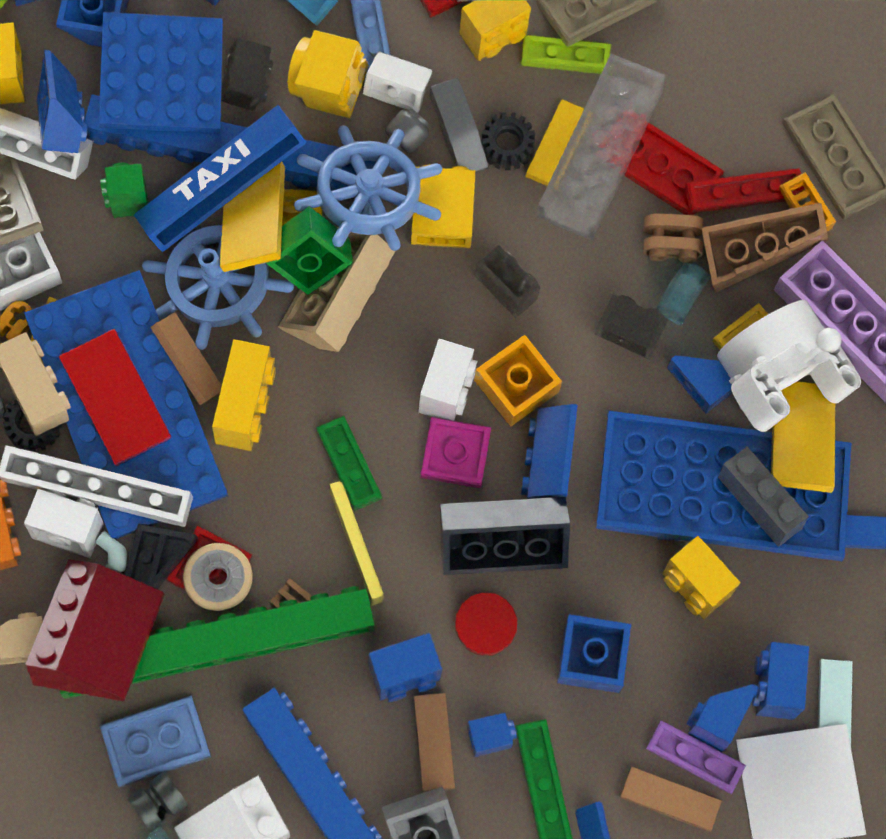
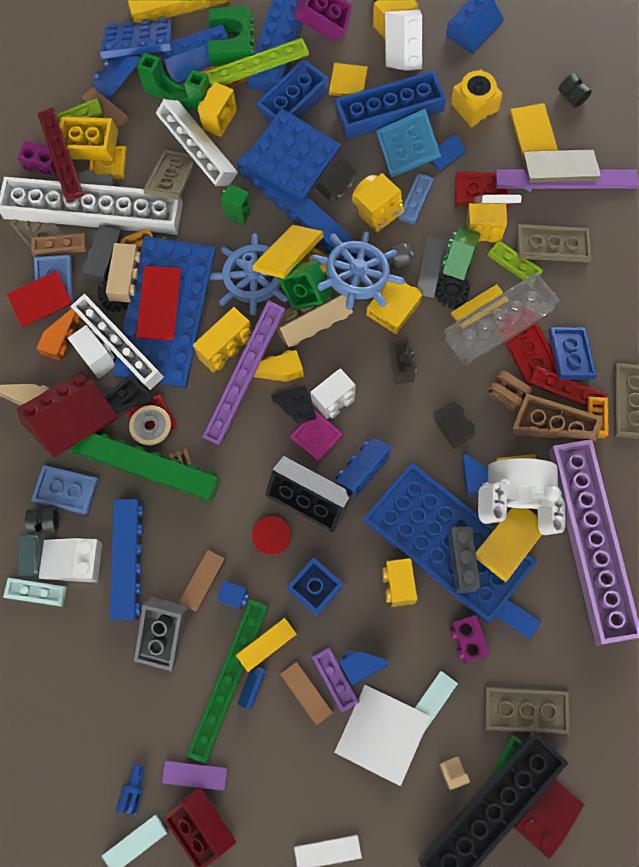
camera: 45 degrees right, 0 degrees up
(59, 107) = (229, 143): blue slope -> none
(116, 552) = (110, 384): light aqua arm -> none
(187, 358) = (209, 303): medium nougat tile -> none
(219, 178) = (285, 223): blue brick -> none
(304, 424) = (244, 373): none -> medium lavender tile
(347, 387) = (281, 367): none -> yellow slope
(349, 463) = (257, 408): green tile -> none
(356, 543) = (231, 452): light yellow tile -> none
(397, 81) = (413, 227): white panel -> none
(400, 424) = (296, 404): none -> black wing
(405, 667) = (209, 531): blue brick -> none
(492, 83) = (460, 253): none -> brick
(517, 380) = (372, 417): light orange brick -> none
(577, 770) = (265, 644): none -> yellow tile
(683, 292) = (494, 423): clear light blue slope -> none
(721, 138) = (572, 353): none -> blue tile
(781, 680) = (408, 668): blue brick -> none
(836, 590) = (474, 638): none -> magenta brick

